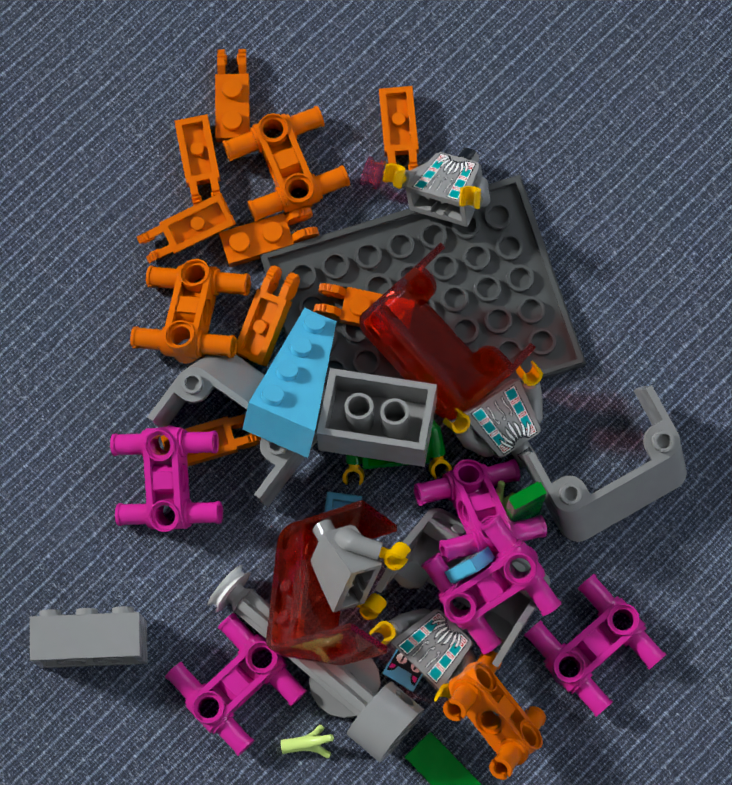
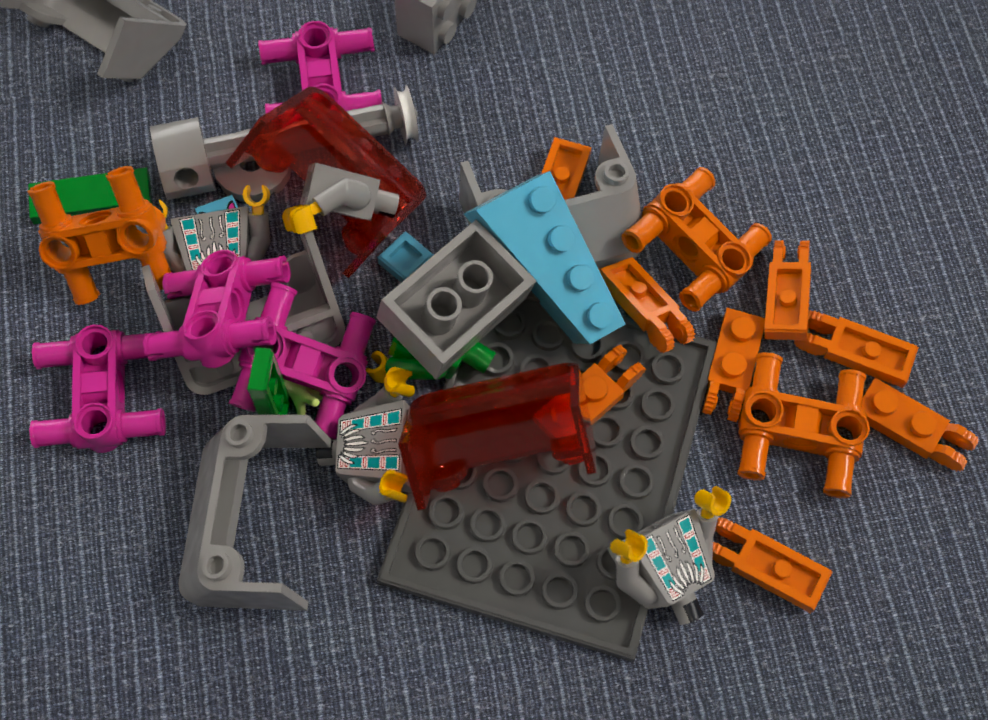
camera: 120 degrees right, 10 degrees down
(166, 478) = (545, 121): dark pink piece -> none
(309, 742) = (227, 104): yellowish green bar -> none
(372, 172) = (741, 504): clear pink bush -> none
(470, 565) = (248, 294): medium azure tile -> none

